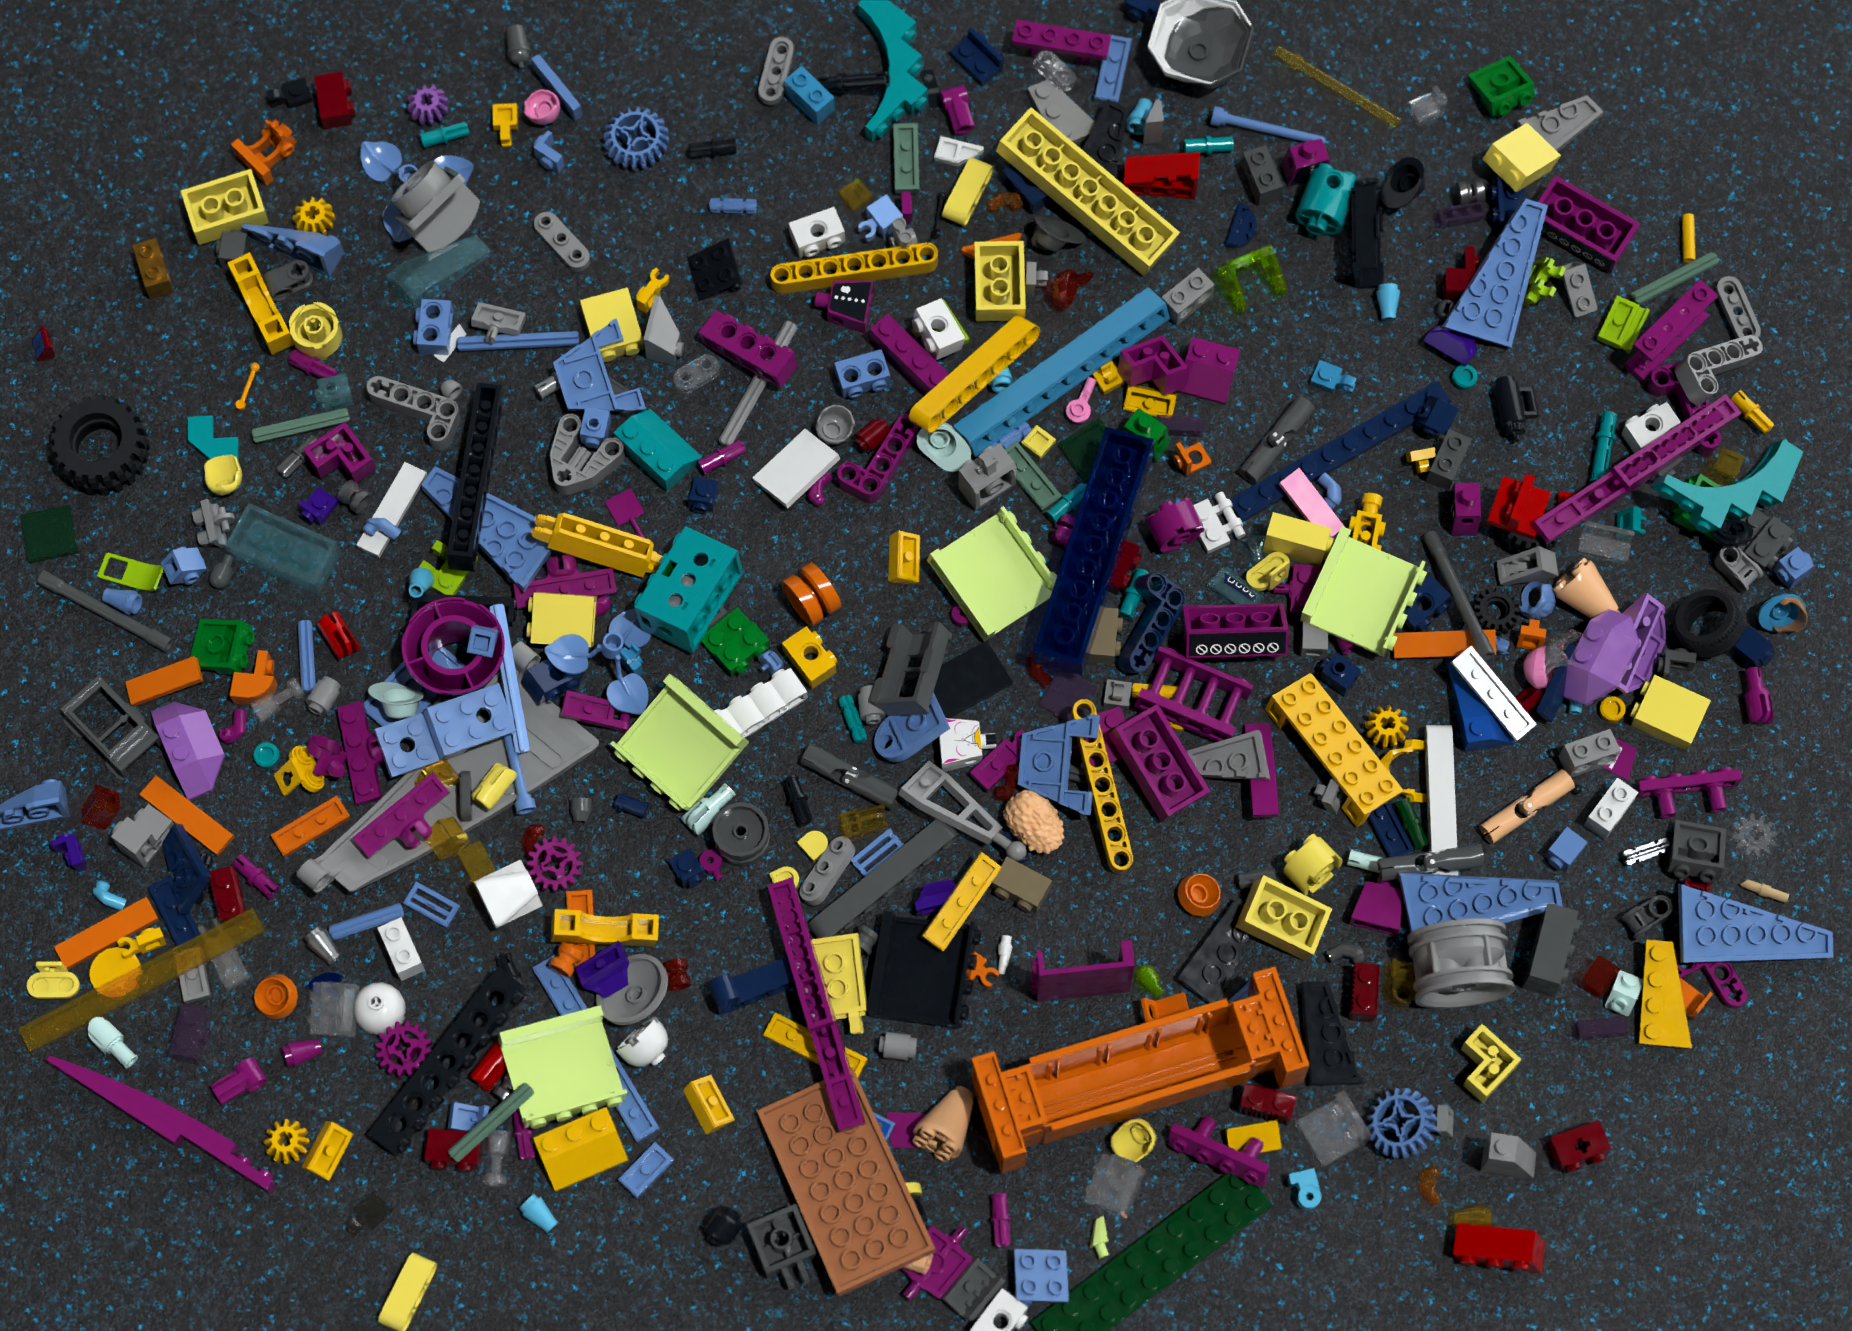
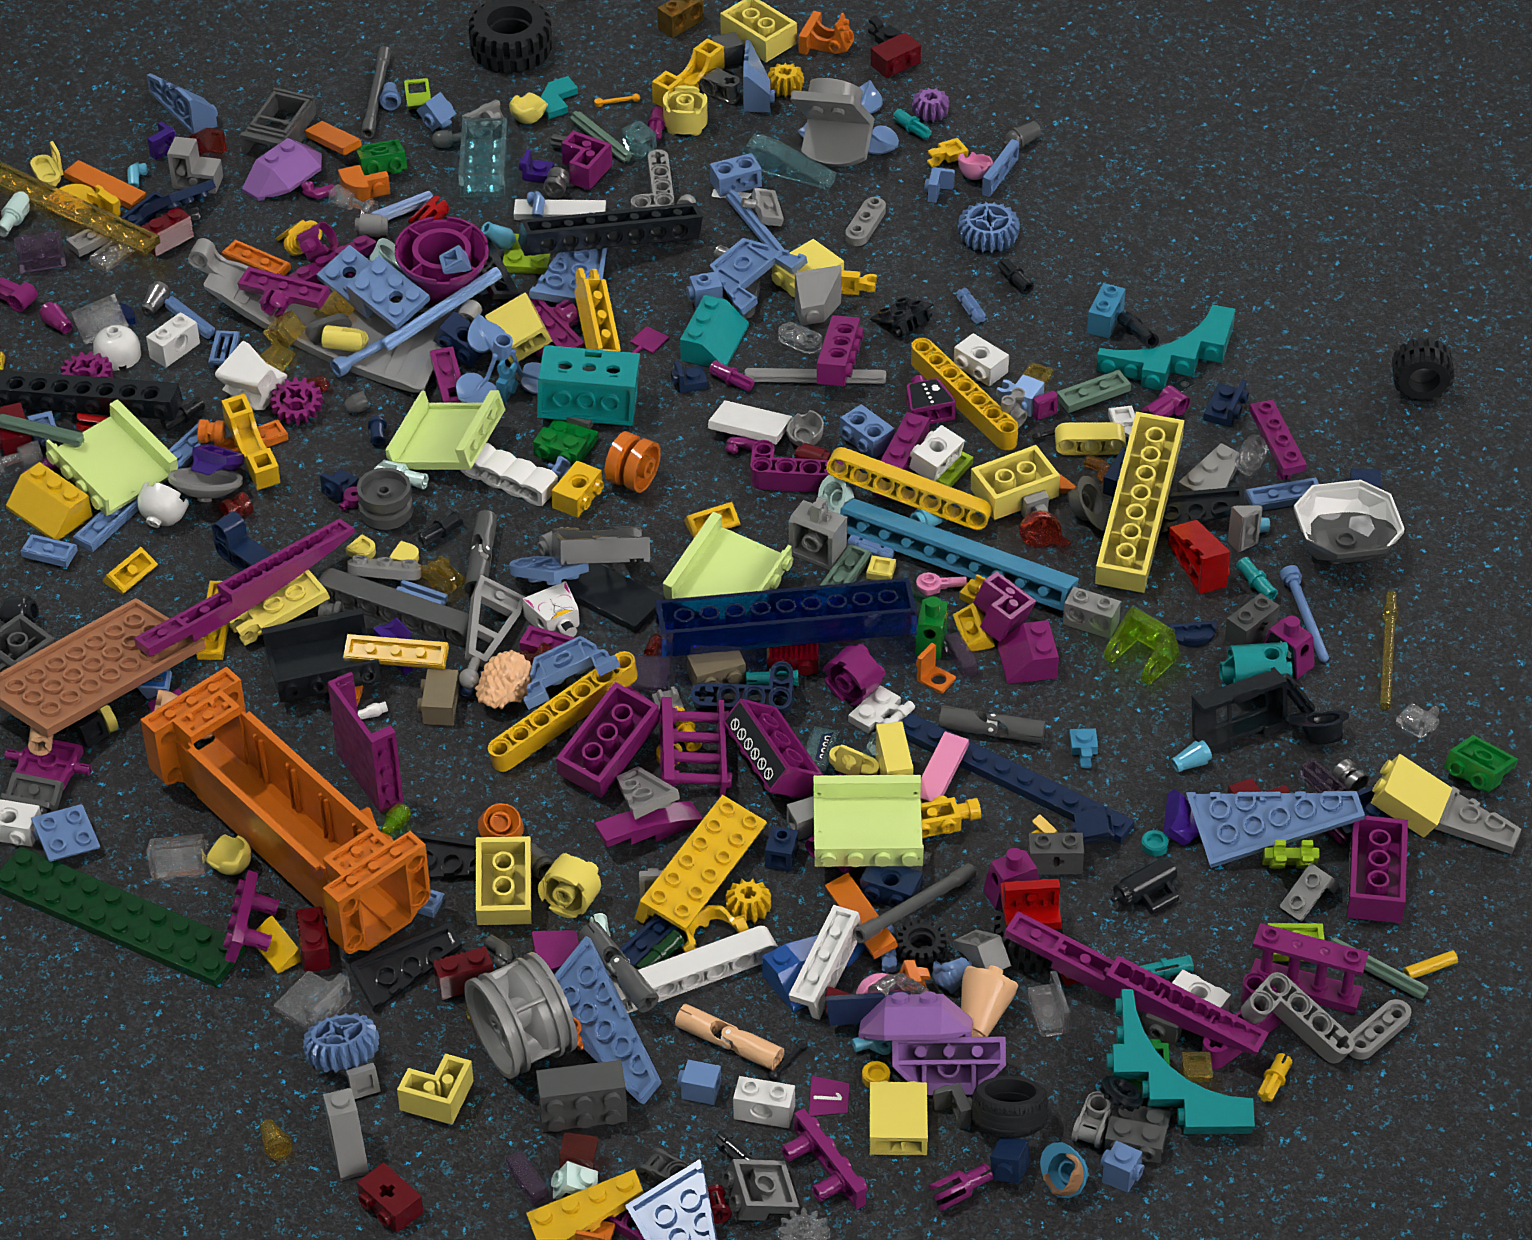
camera: 65 degrees right, 25 degrees down
(49, 534) = (423, 43): clear green tile -> none
(184, 812) = (227, 192): orange tile -> none
(256, 876) = (204, 233): magenta pin -> none
(266, 755) = (303, 213): teal tile -> none
(276, 988) = (96, 287): orange hat -> none
(596, 469) = (666, 293): light grey connector -> none
(776, 62) = (1134, 283): light grey plate -> none
(852, 718) = (525, 547): teal axle -> none
(898, 1046) = (242, 665): light grey brick -> none
(1000, 1219) = (110, 793): magenta axle -> none
(1099, 1238) = (125, 869): yellowish green bar -> none
(1307, 1187) = (243, 1000): medium azure leg -> none
(1333, 490) = (969, 784): medium blue arm -> none
(1427, 1185) = (290, 1094): clear orange arm -> none
(1499, 1247) = (249, 1168): red wedge -> none
(1589, 753) = (812, 1063): light grey brick -> none
(1631, 520) = (1085, 1016): teal tile -> none

